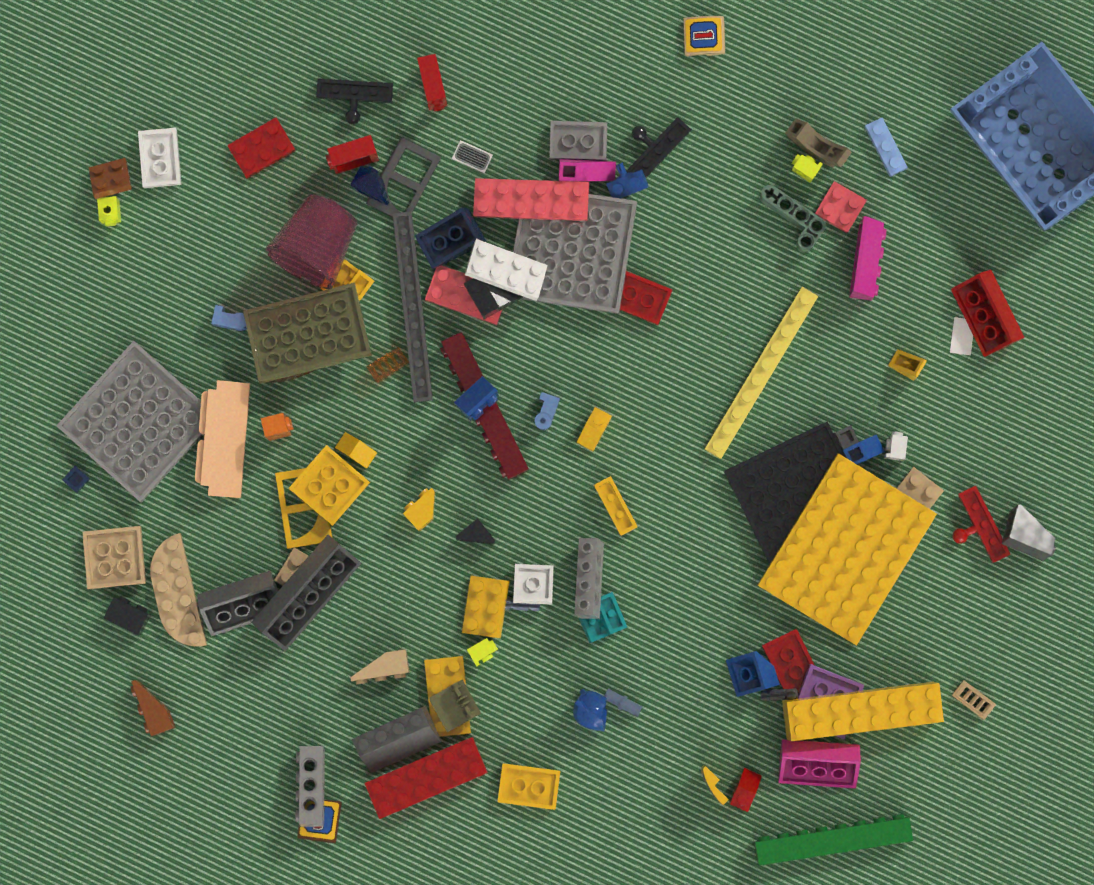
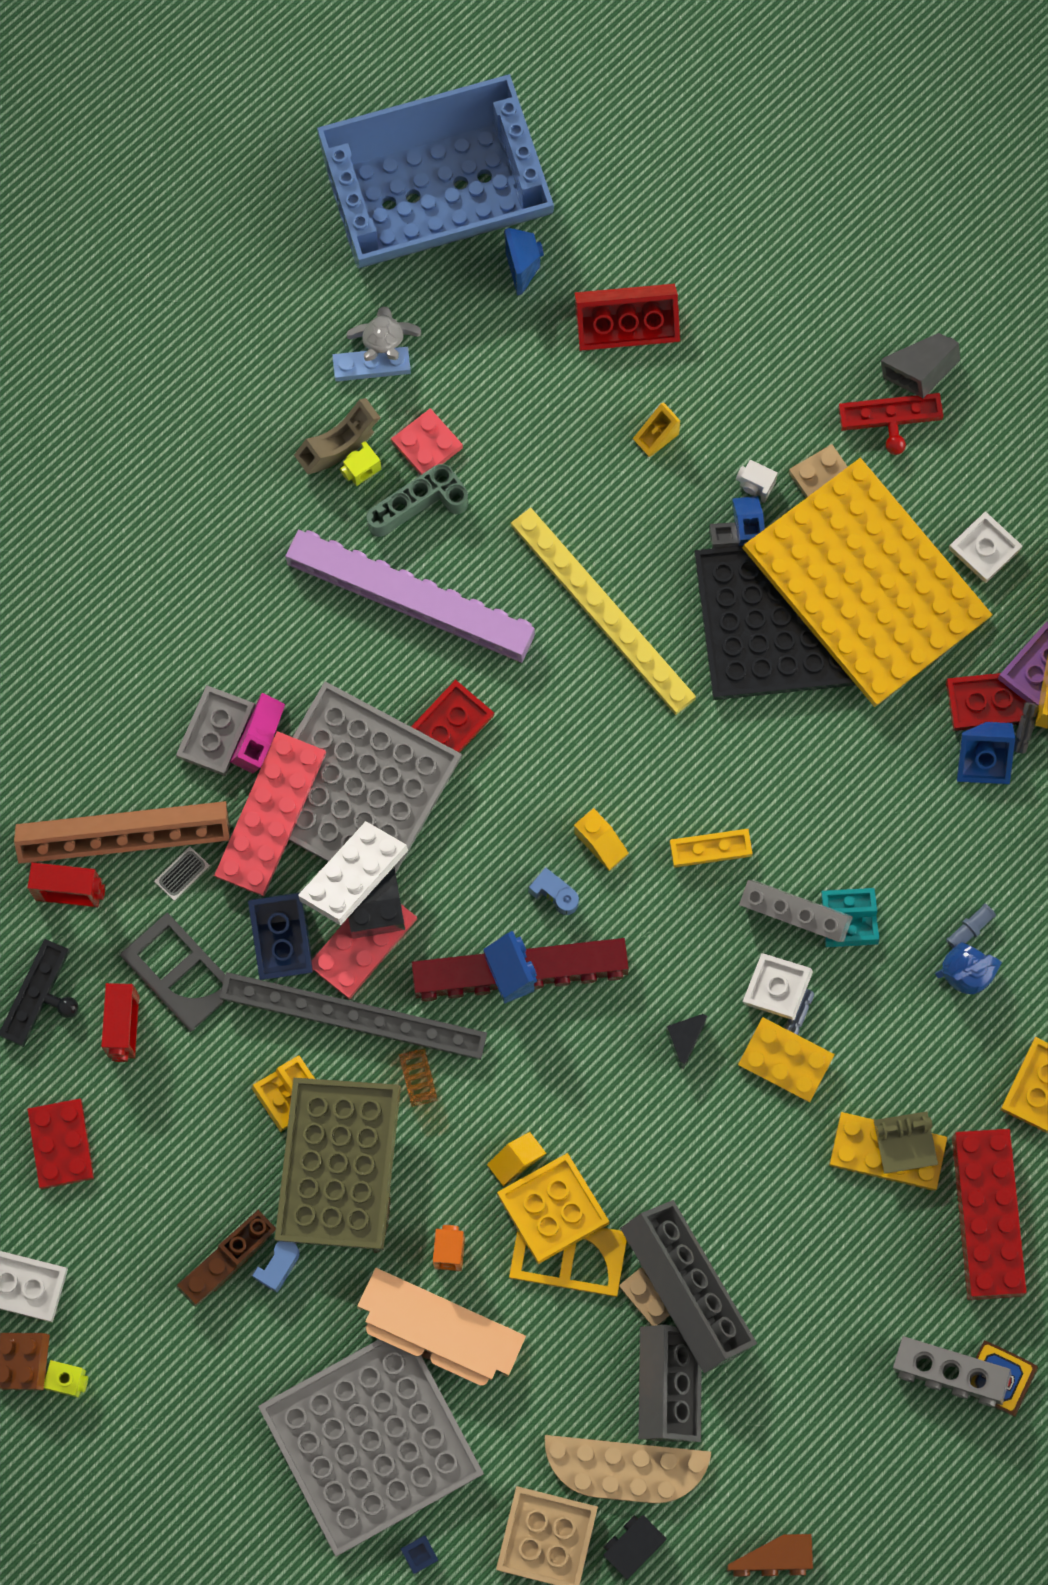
camera: 70 degrees left, 10 degrees down
(221, 284) = (227, 1258): none -> reddish brown slope
(314, 241) = (220, 1108): clear pink cone -> none
(370, 184) = (169, 1014): clear blue slope -> none
(388, 664) = (820, 1215): tan slope -> none
(397, 739) = (925, 1235): dark grey slope -> none
(422, 510) = (630, 1096): yellow slope -> none
(482, 651) = (844, 1083): neon yellow brick -> none
(483, 106) = (122, 832): none -> nougat brick
(627, 182) = (295, 687): blue plate -> none
(660, 148) = (266, 637): black plate -> none
(704, 35) = (142, 529): slope -> none
(722, 236) = (410, 595): none -> lavender brick
(866, 259) = (506, 433): dark pink slope -> none
(905, 624) = (985, 547): none -> white plate
(908, 147) = (383, 334): none -> light grey animal
(961, 337) = (645, 359): white sticker -> none
(1004, 223) = (522, 256): none -> blue slope

